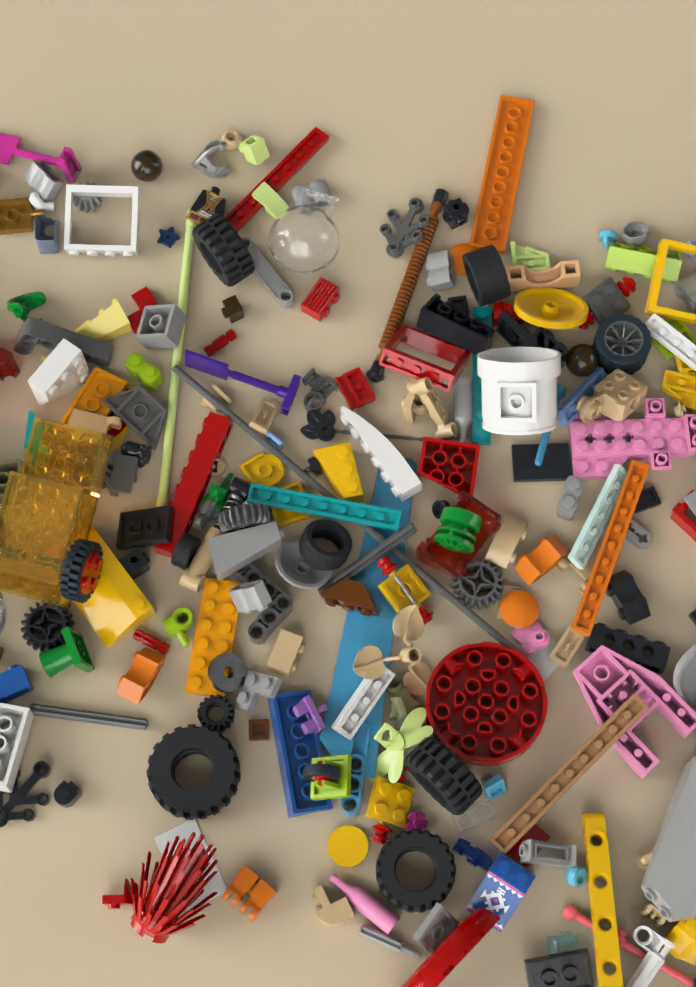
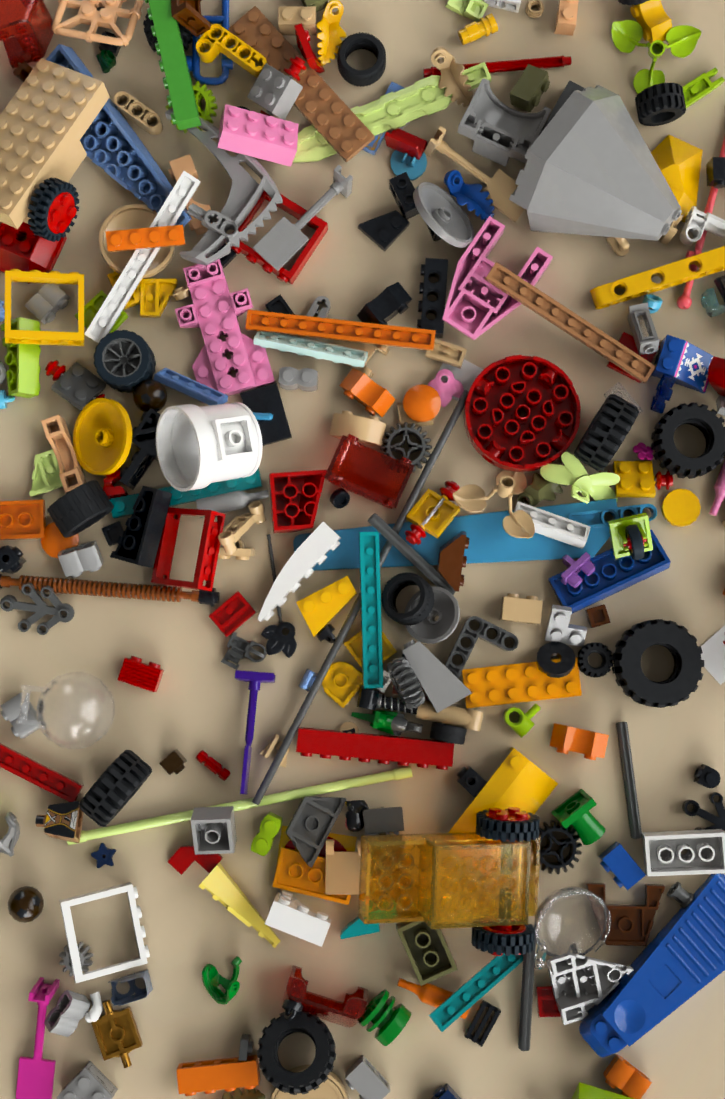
camera: 100 degrees left, 15 degrees up
(50, 335) = (258, 958): dark grey beam -> none
(145, 527) = (433, 781): black tile -> none
(151, 641) = (541, 742): red axle -> none
(250, 596) = (479, 656): light grey brick -> none
(264, 415) = (285, 696): tan plate -> none
(269, 276) = (123, 739): light grey piece -> none
(270, 200) = (37, 757): yellowish green slope -> none
(458, 529) = (367, 473): green wheel -> none
(494, 786) = (594, 390): medium azure tile -> none
(614, 397) = (186, 357): tan brick -> none

